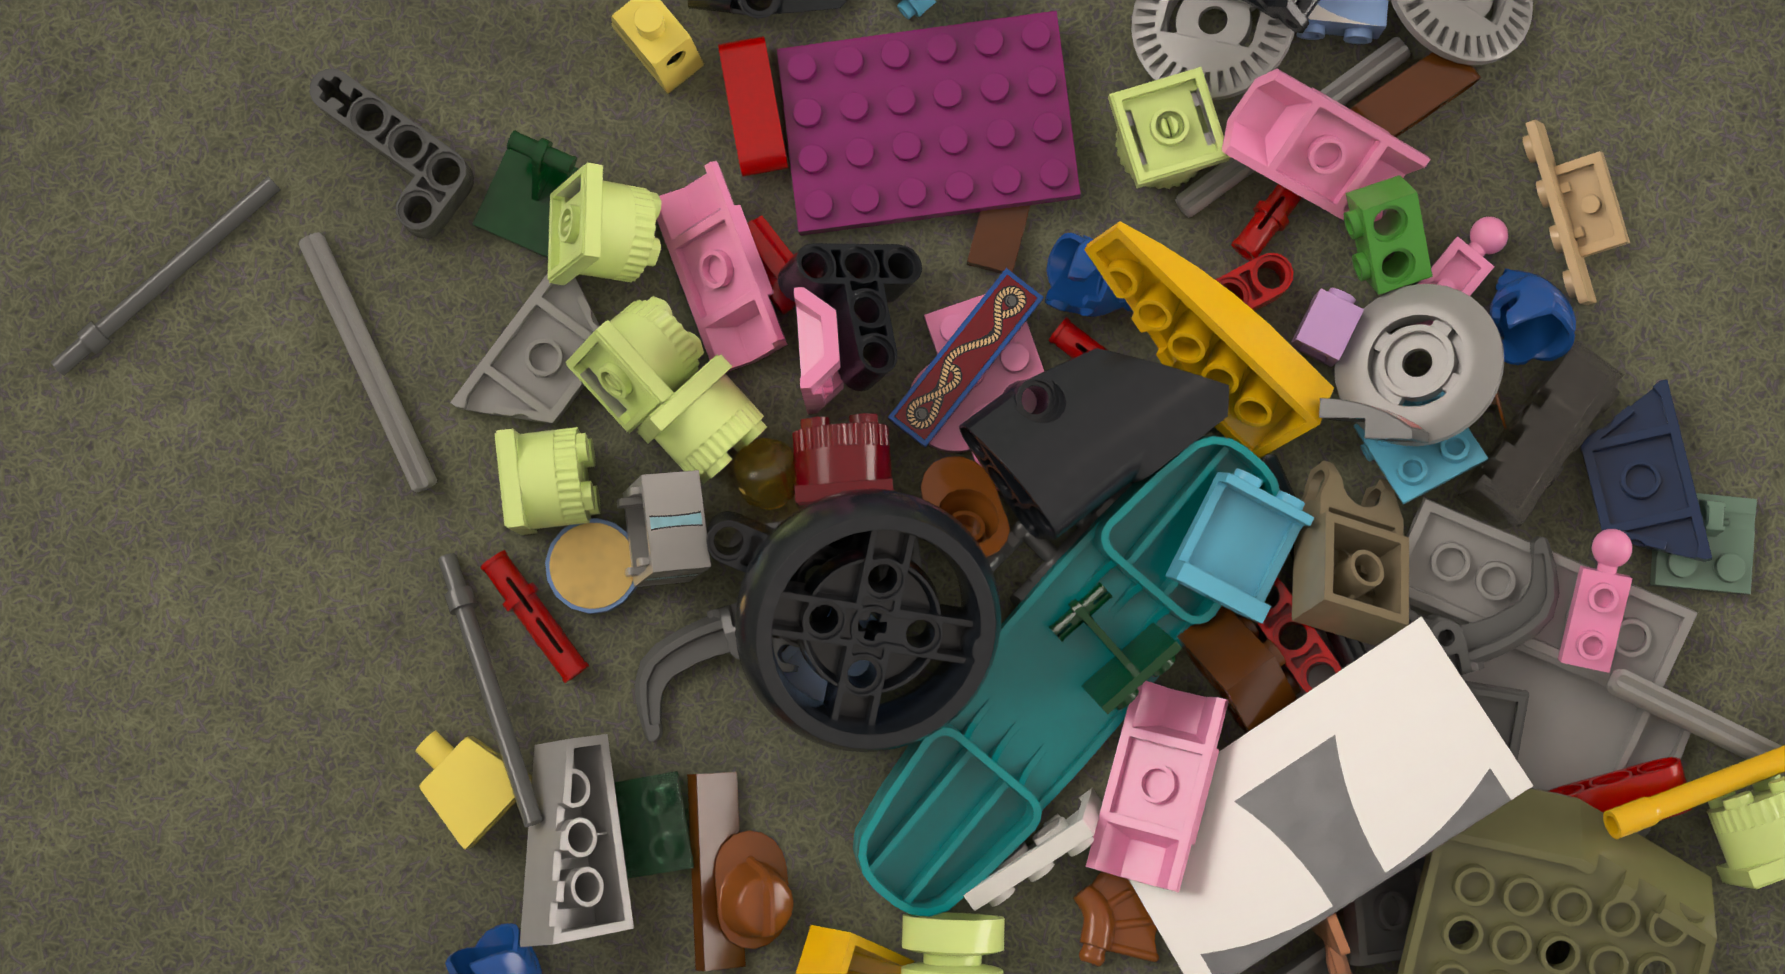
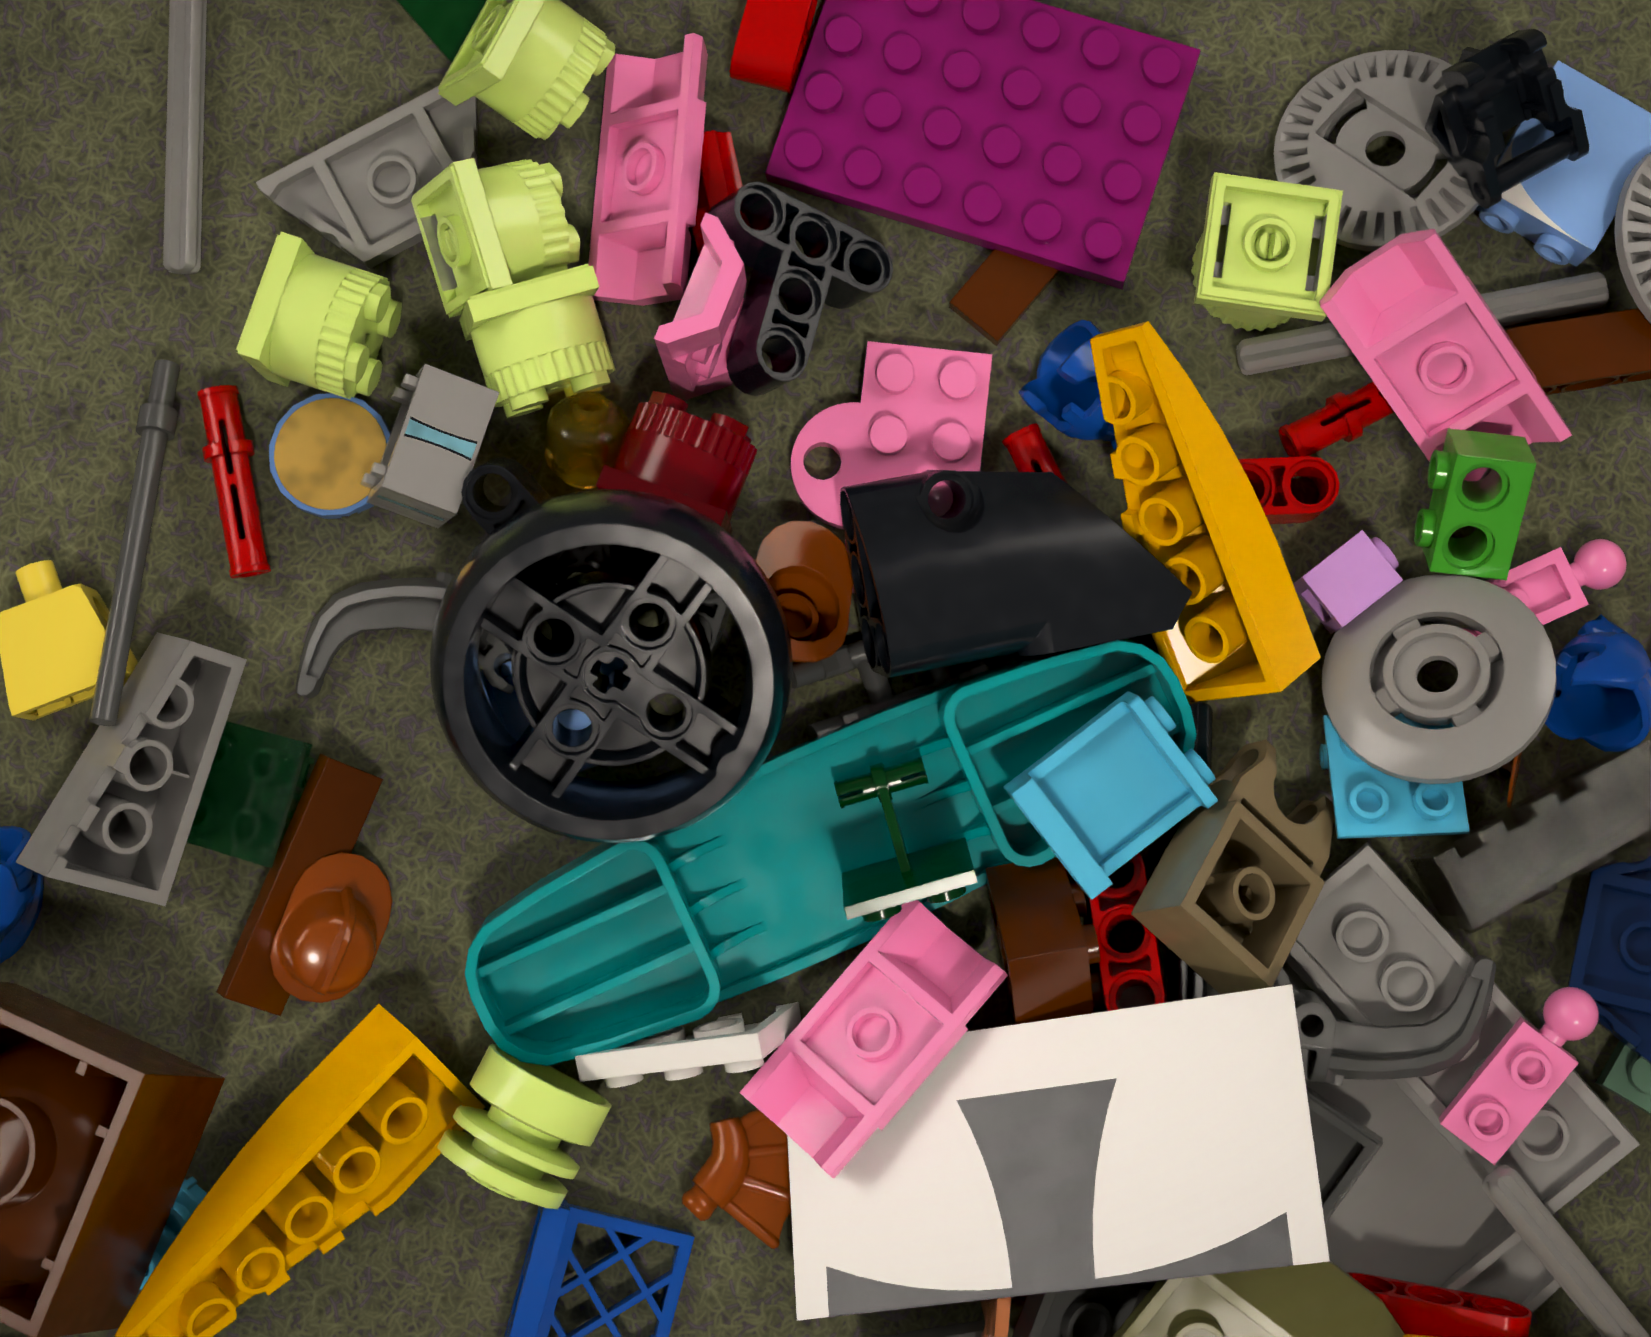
camera: 30 degrees right, 0 degrees up
(965, 358) = (890, 413): tile -> none
(1379, 423) = (1354, 724): slope -> none

